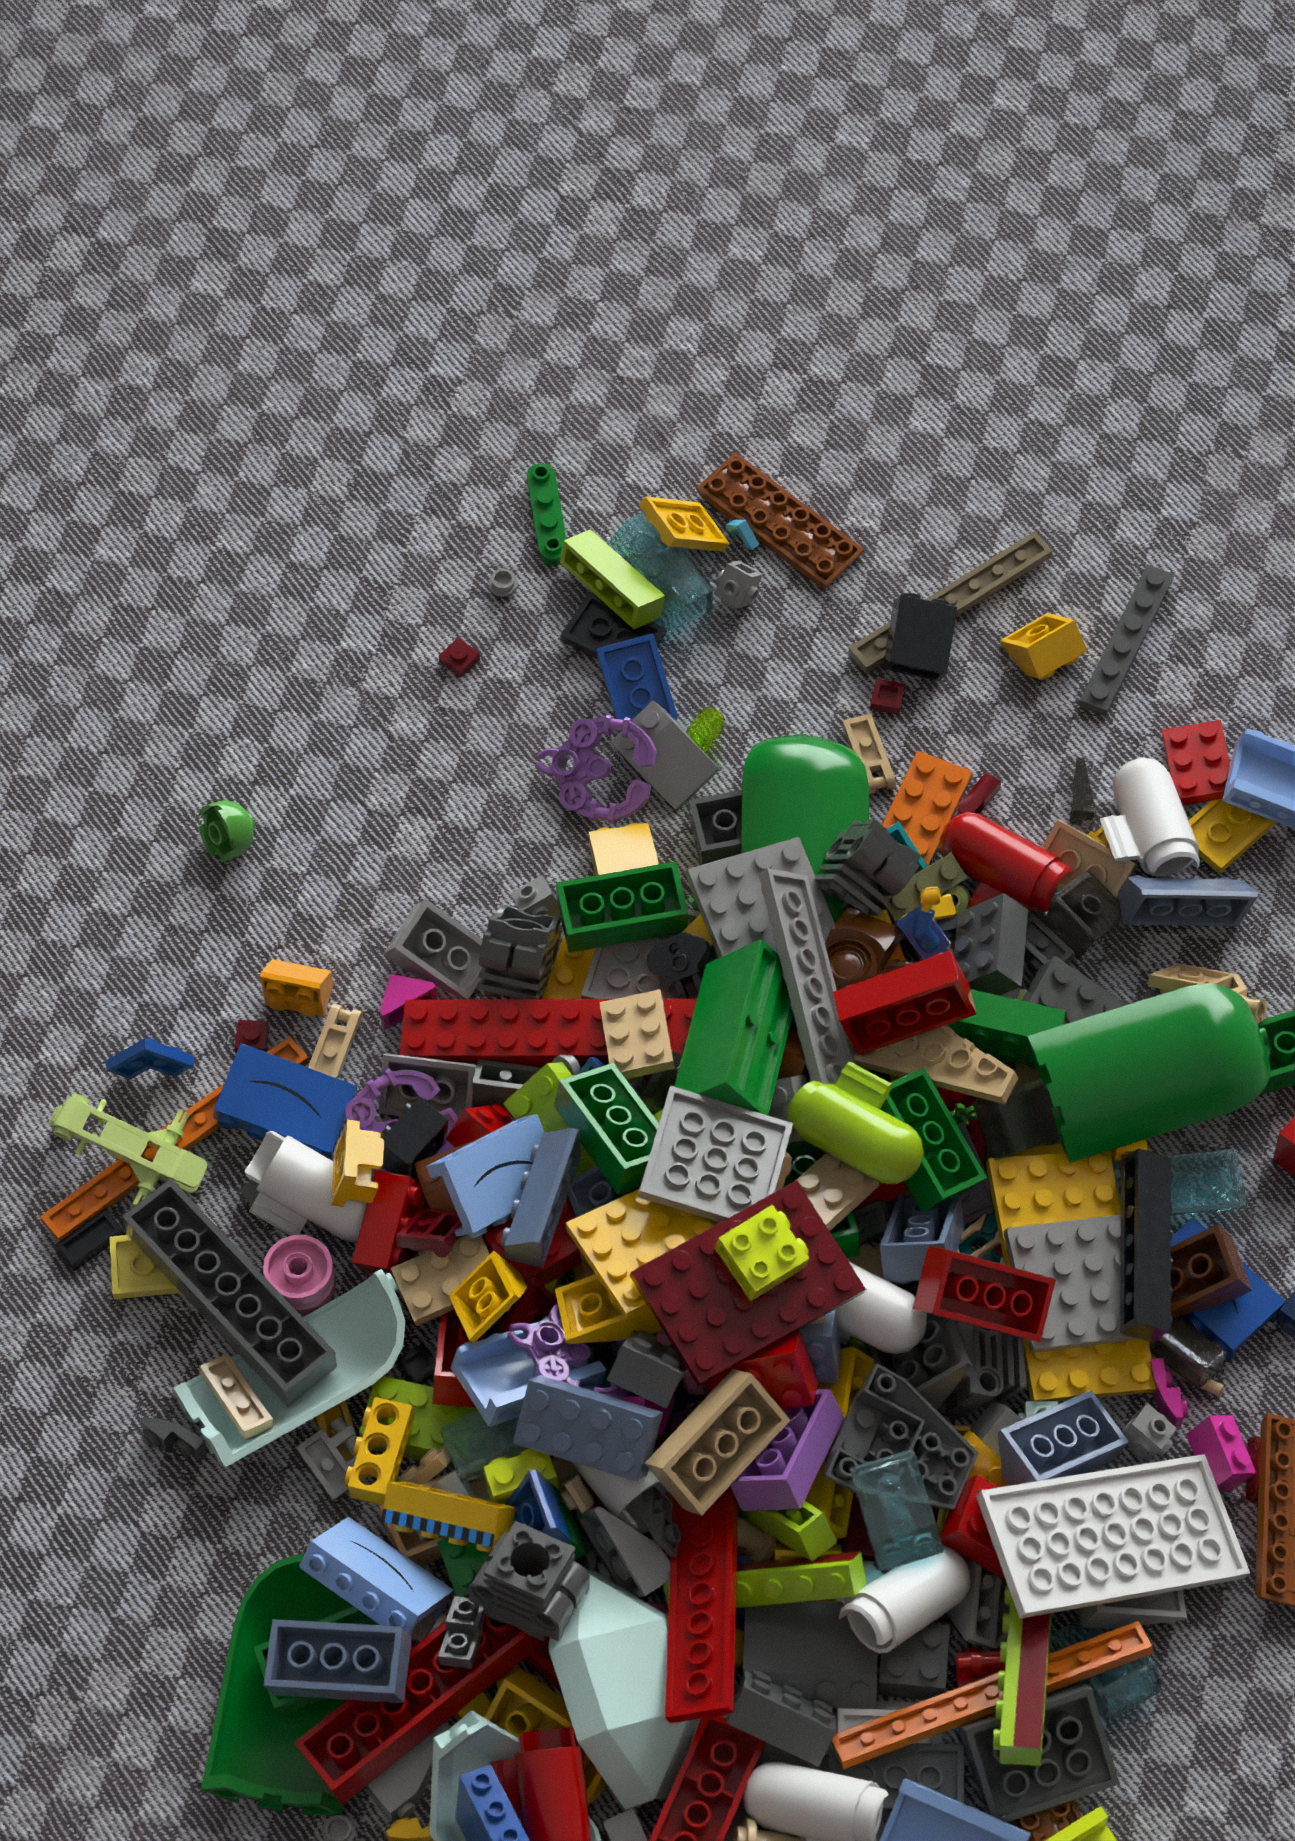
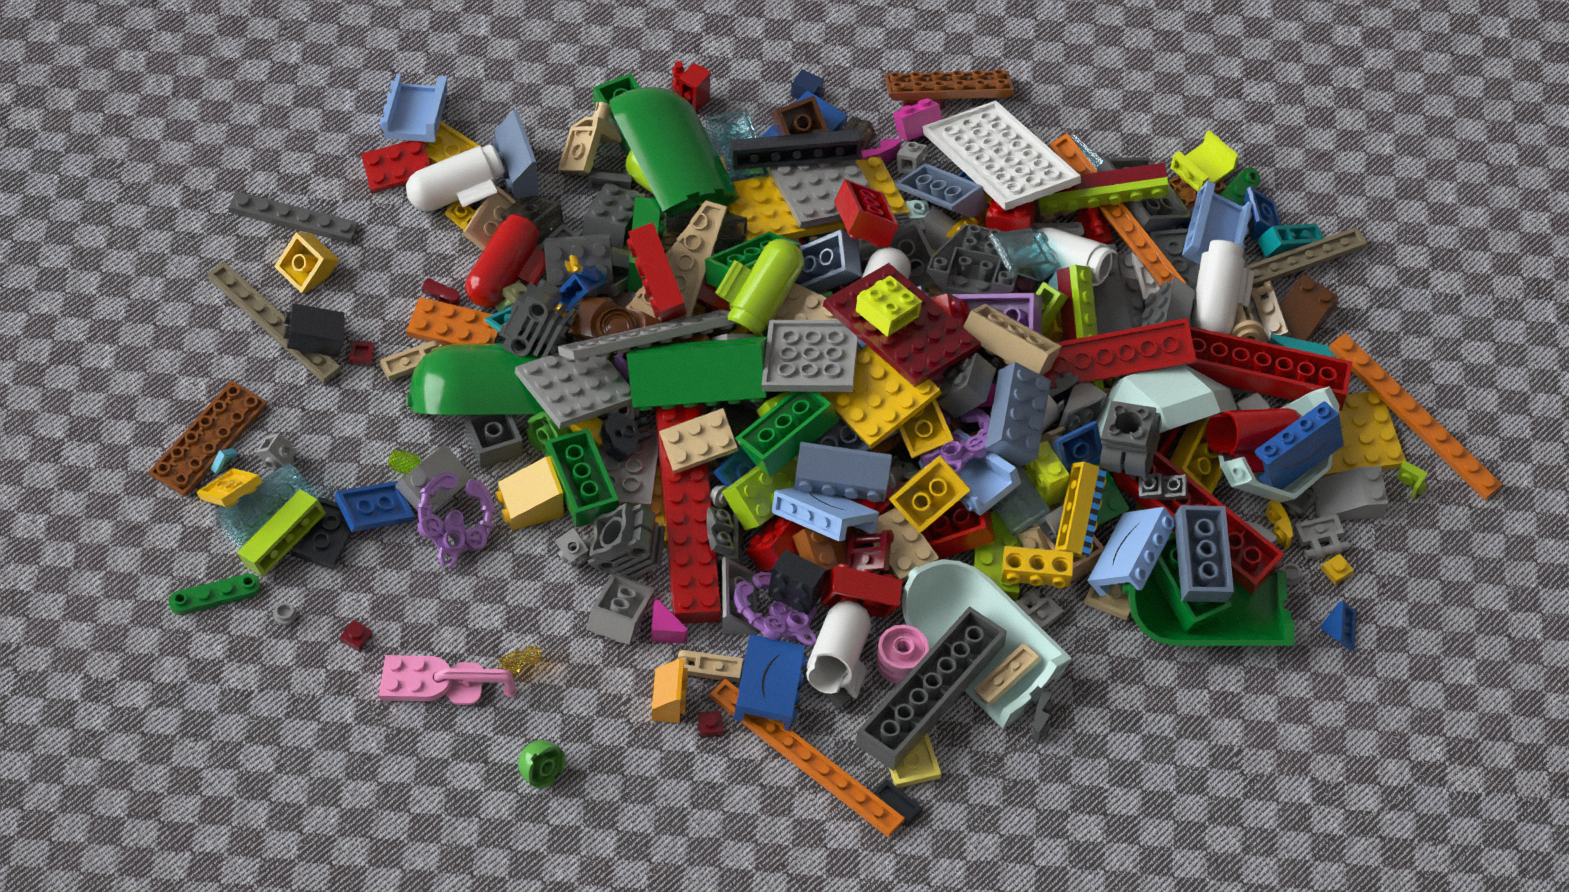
camera: 105 degrees left, 5 degrees down
(129, 1143) = (829, 764): yellowish green piece -> none
(148, 1055) = (748, 770): blue plate -> none
(353, 1163) = (836, 599): yellow panel -> none
(374, 725) = (414, 676): none -> bright pink plate
(380, 819) = (515, 659): none -> clear yellow plate
(509, 1059) = (718, 530): none -> dark grey slope
(1082, 801) = (431, 231): clear smoke slope -> none

